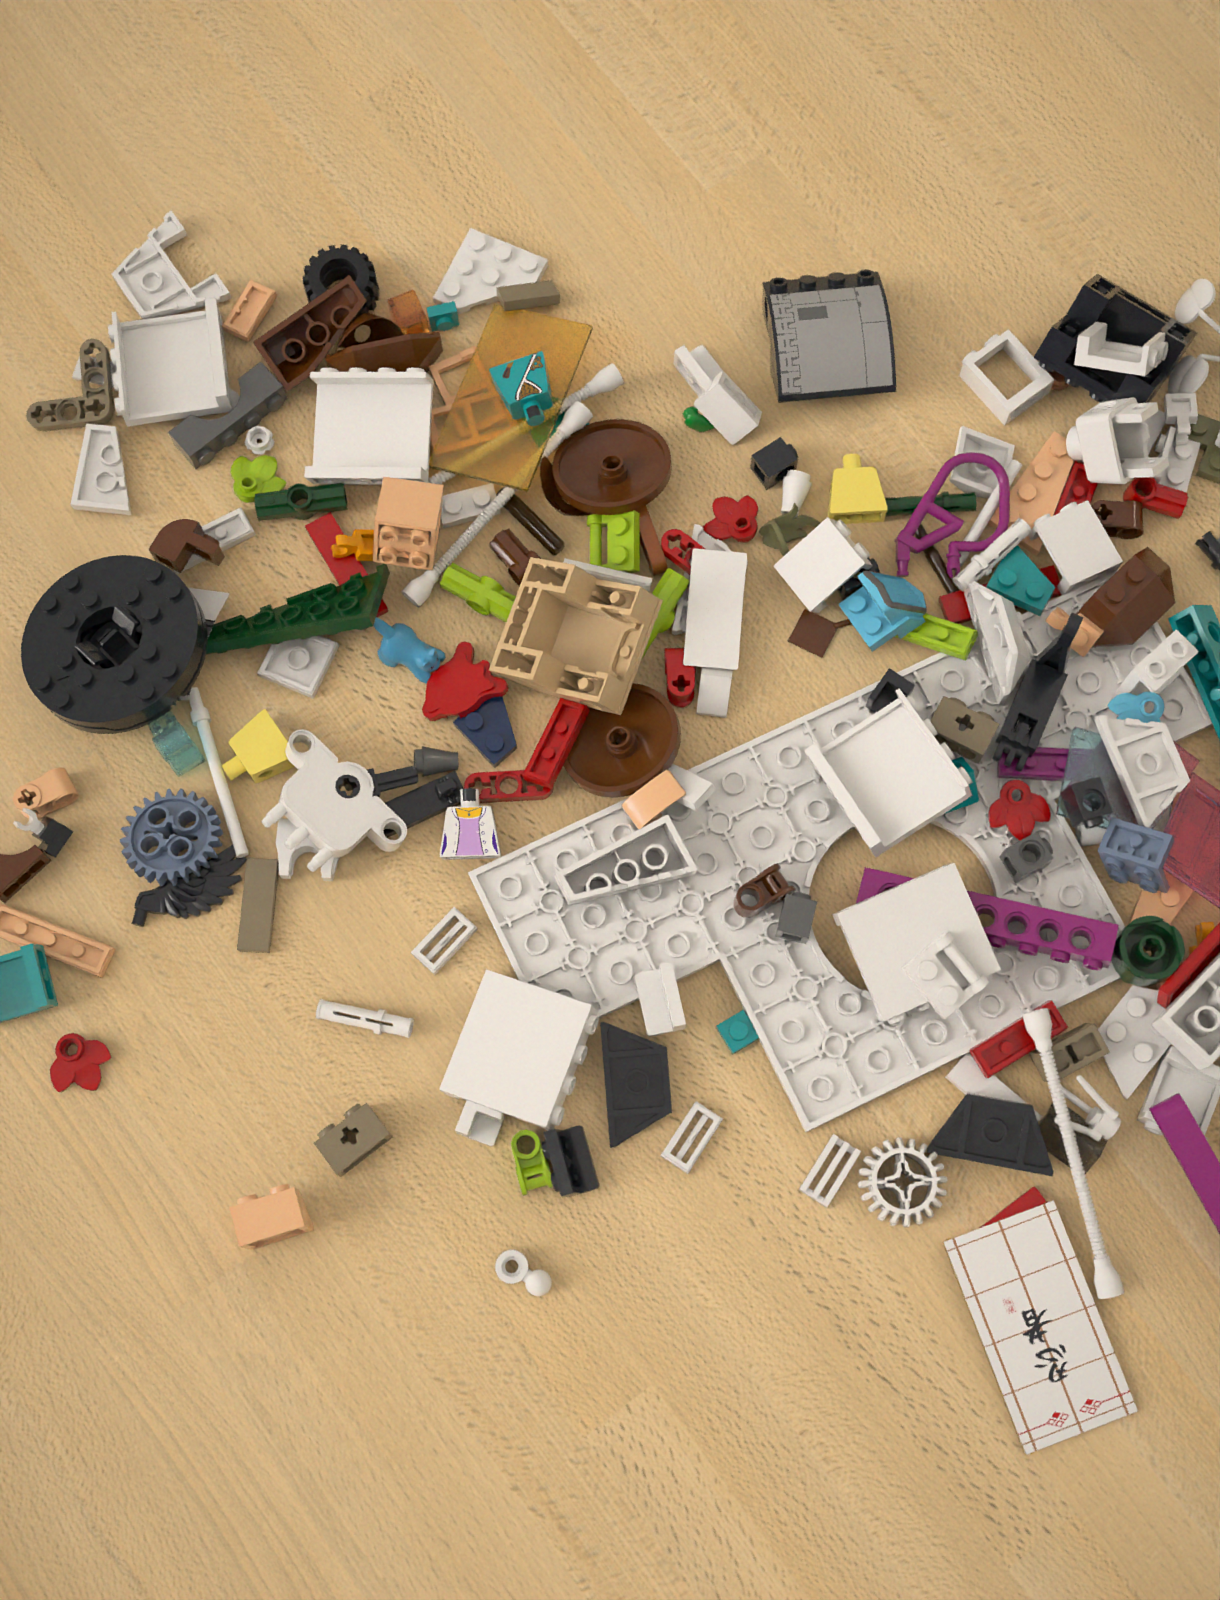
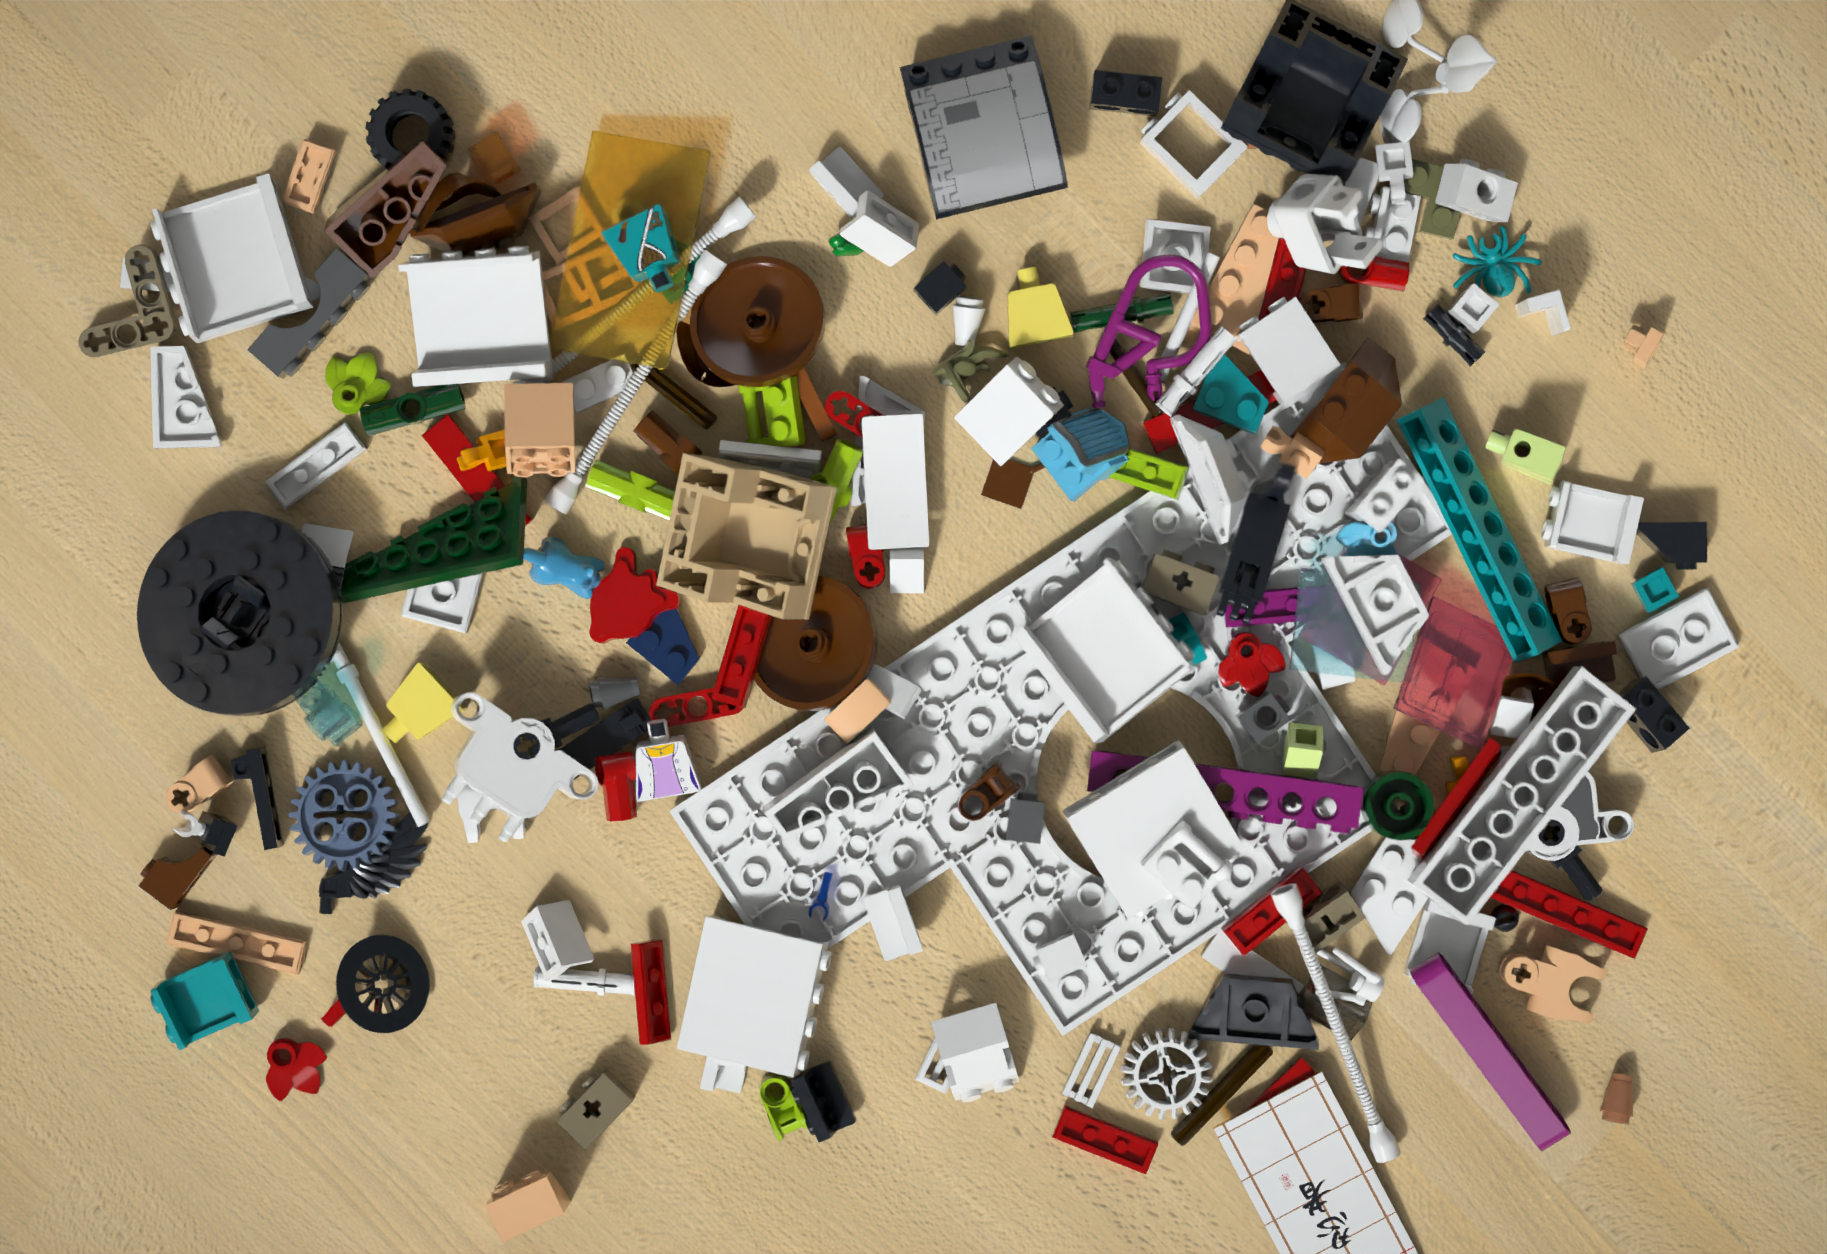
camera: 10 degrees left, 15 degrees up
(101, 785) = (256, 767): none -> black hinge
(131, 1012) = (333, 1015): none -> red tile
(154, 282) = (190, 155): white wing -> none
(180, 540) = (287, 477): reddish brown brick -> none
(199, 971) = (415, 990): none -> black piece
(254, 435) = (342, 333): white plate -> none
(258, 905) = (450, 874): dark tan tile -> none
(344, 973) = (556, 938): none -> white panel
(423, 1036) = (651, 991): none -> red tile
(425, 835) = (616, 777): none -> red piece
(443, 316) = (535, 156): teal plate -> none
(460, 941) = (671, 860): white tile -> none
(482, 267) = (577, 87): white plate -> none
(528, 295) = (629, 115): dark tan tile -> none
(537, 1281) = (806, 1223): white plate -> none
(598, 966) = (822, 896): none -> clear blue hand
(634, 1082) = (877, 1009): black wing -> none
(722, 1134) = (975, 1053): none -> white piece
(731, 516) = (898, 356): red plate -> none
(737, 1032) = (978, 939): teal plate -> none
(813, 1051) = (1059, 957): none -> white brick
(836, 1241) = (1105, 1139): none -> red tile
(886, 690) = (1096, 550): black panel -> none
(952, 329) = (1125, 93): none -> black brick
(953, 1210) = (1221, 1093): none -> dark brown axle
(1062, 888) = (1302, 750): none -> yellowish green brick
(1095, 794) = (1305, 654): black brick -> none
(1097, 353) = (1314, 115): white panel -> none
(1136, 855) = (1375, 698): sand blue bracket -> none

